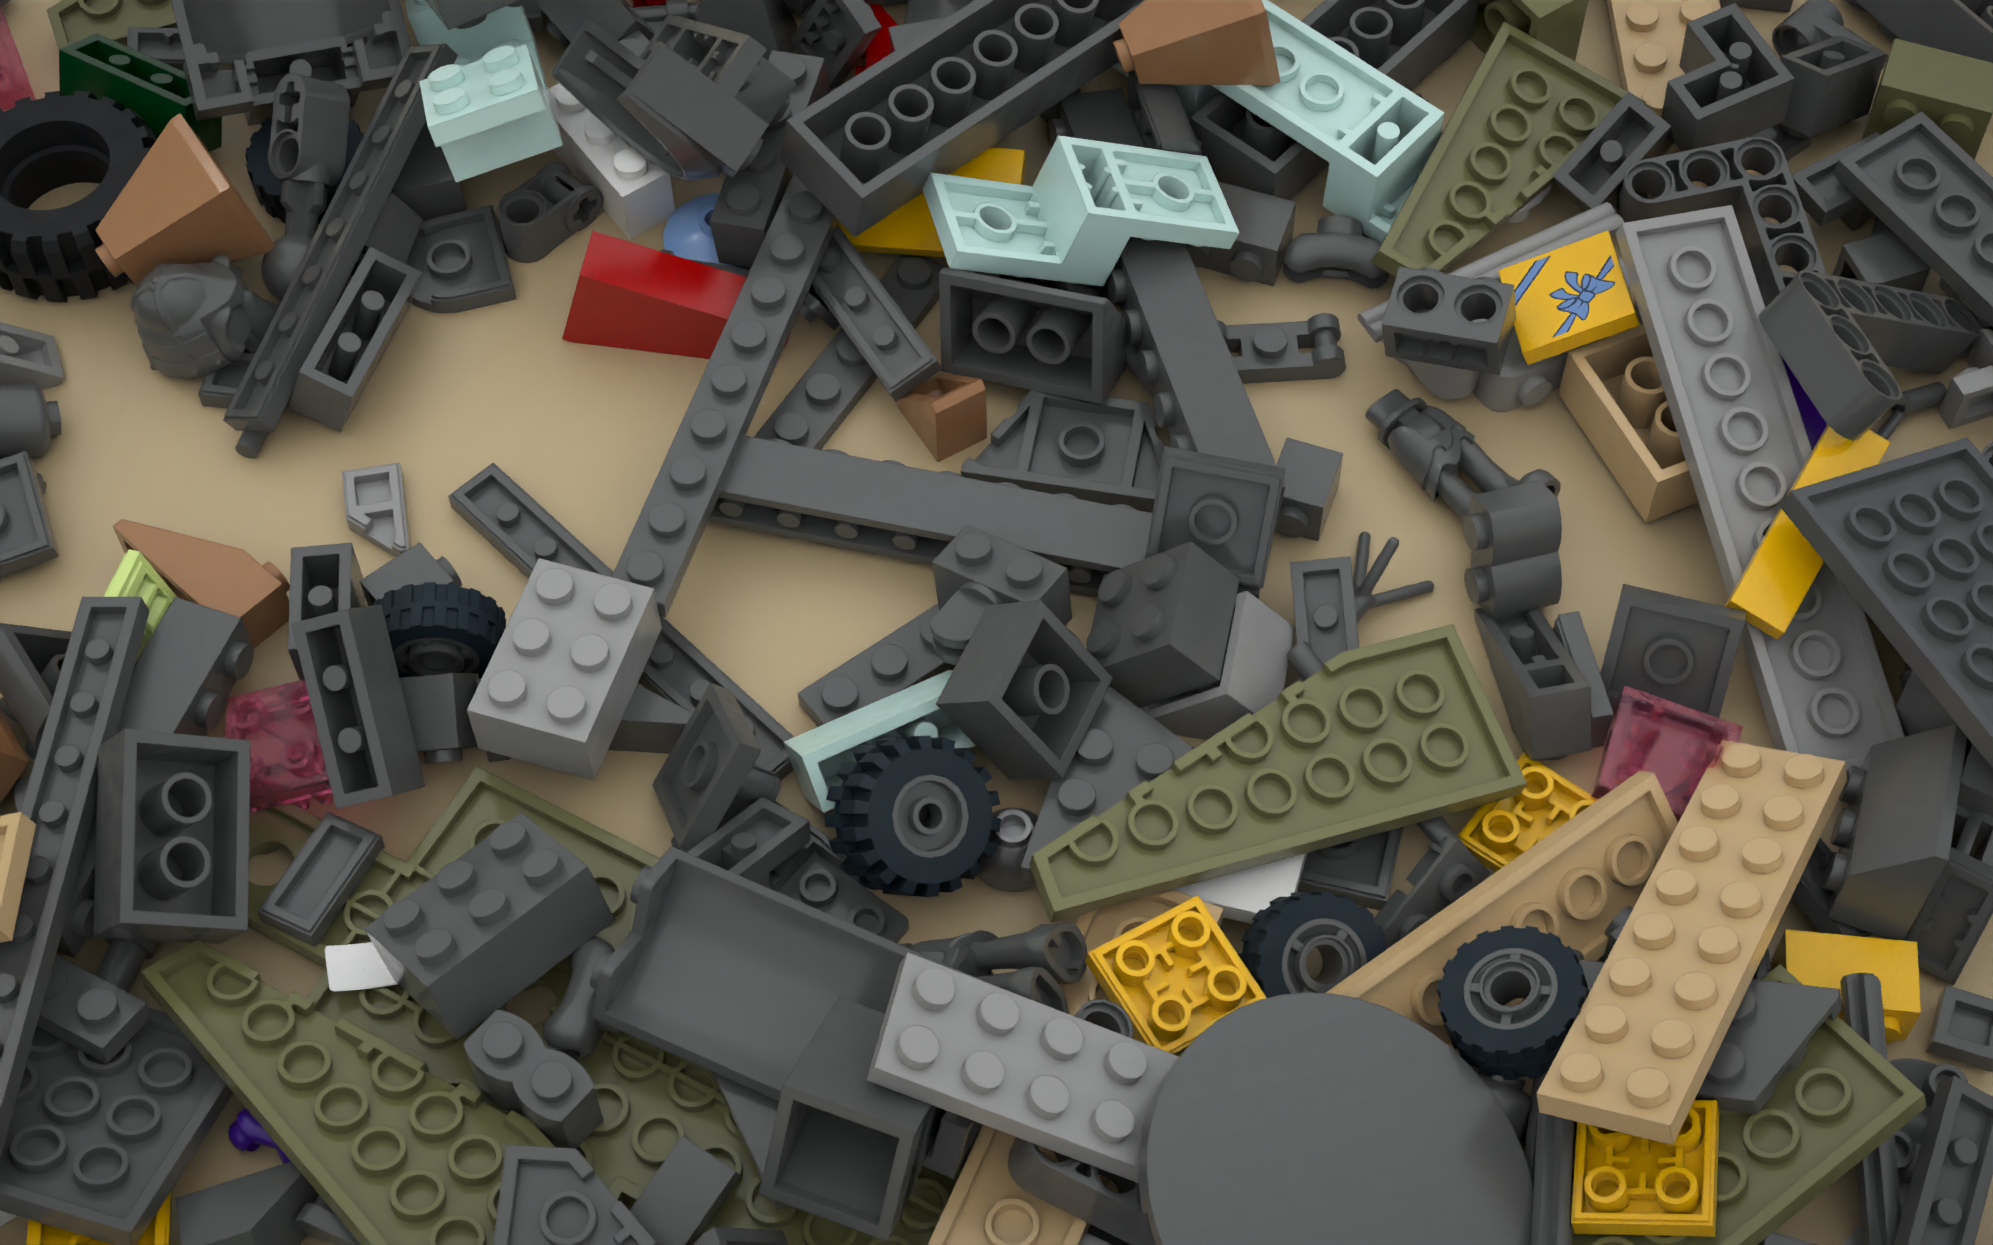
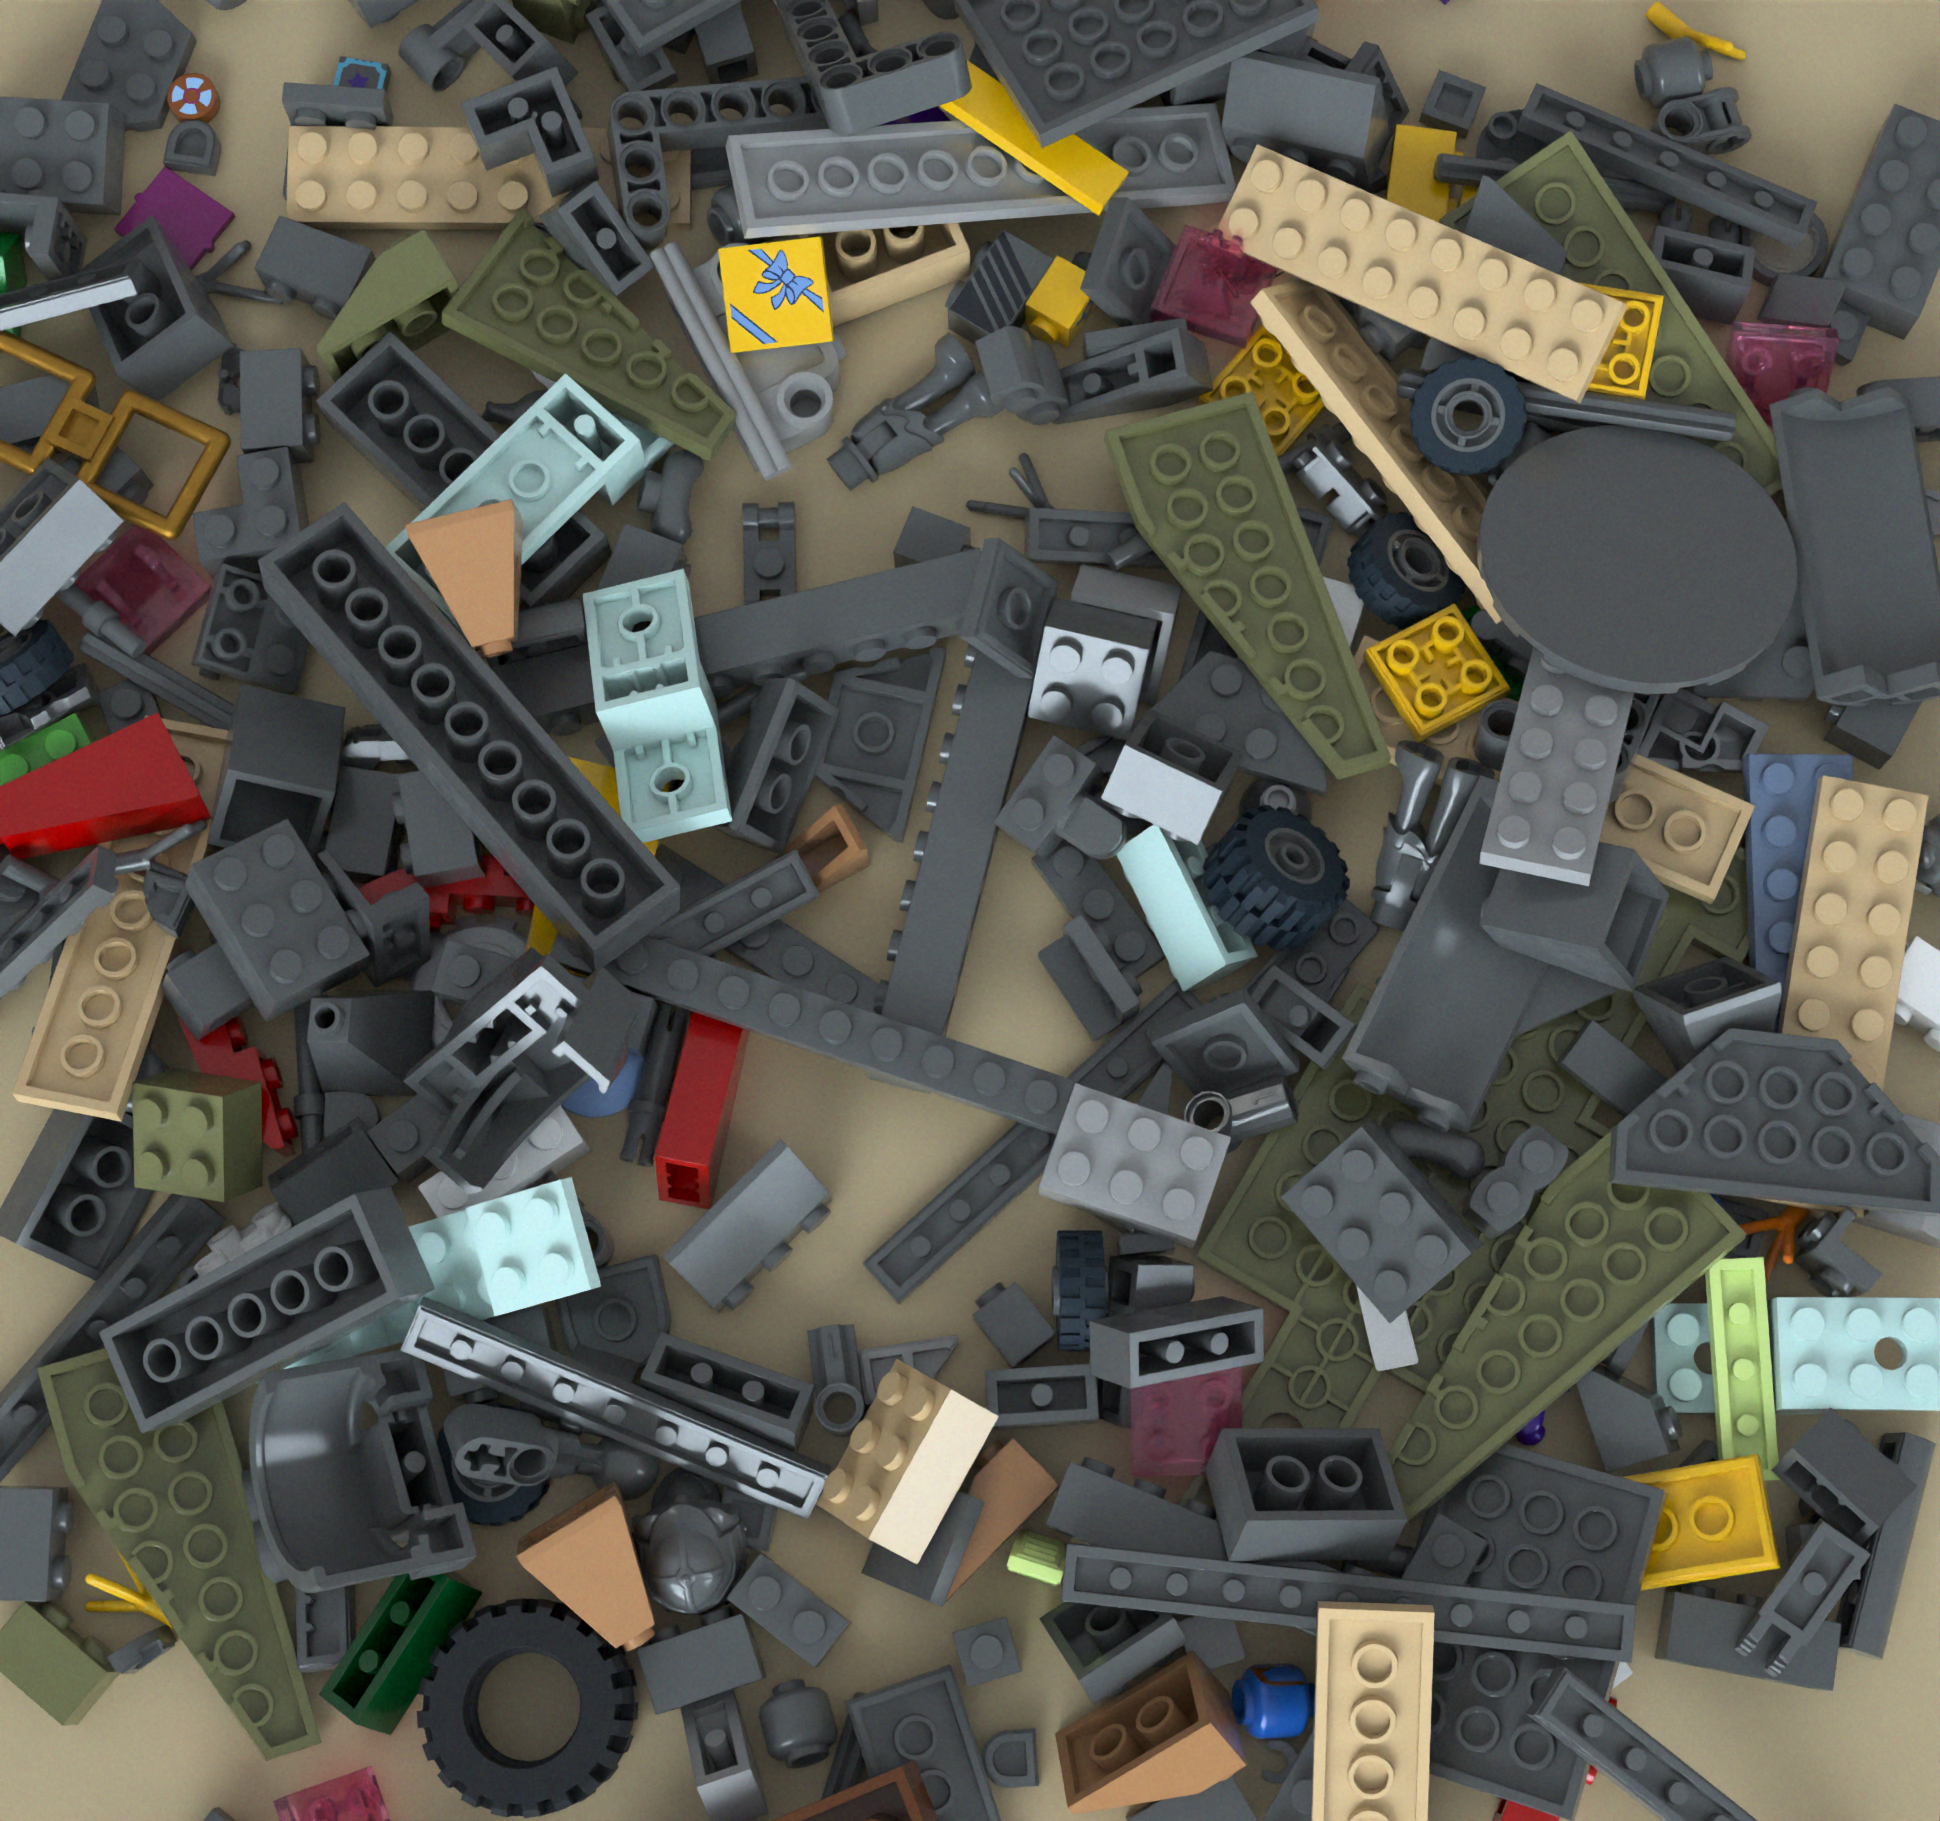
camera: 85 degrees left, 20 degrees up
(58, 576) = (986, 1652): none -> dark grey brick
(90, 340) = (701, 1661): none -> dark grey brick
(130, 407) = (788, 1610): none -> dark grey brick
(185, 512) = (941, 1559): none -> dark grey tile
(264, 479) = (906, 1461): none -> tan brick
(321, 879) = (1310, 1380): dark grey tile -> none
(350, 442) = (836, 1373): none -> dark grey piece
(530, 346) = (750, 1228): none -> dark grey slope
(635, 800) = (1246, 1110): none -> dark grey piece
(803, 656) = (1090, 979): none -> dark grey bracket
(1446, 331) = (811, 398): dark grey brick -> none
(1600, 591) = (1058, 305): none -> yellow brick
(1622, 540) = (997, 288): none -> brick

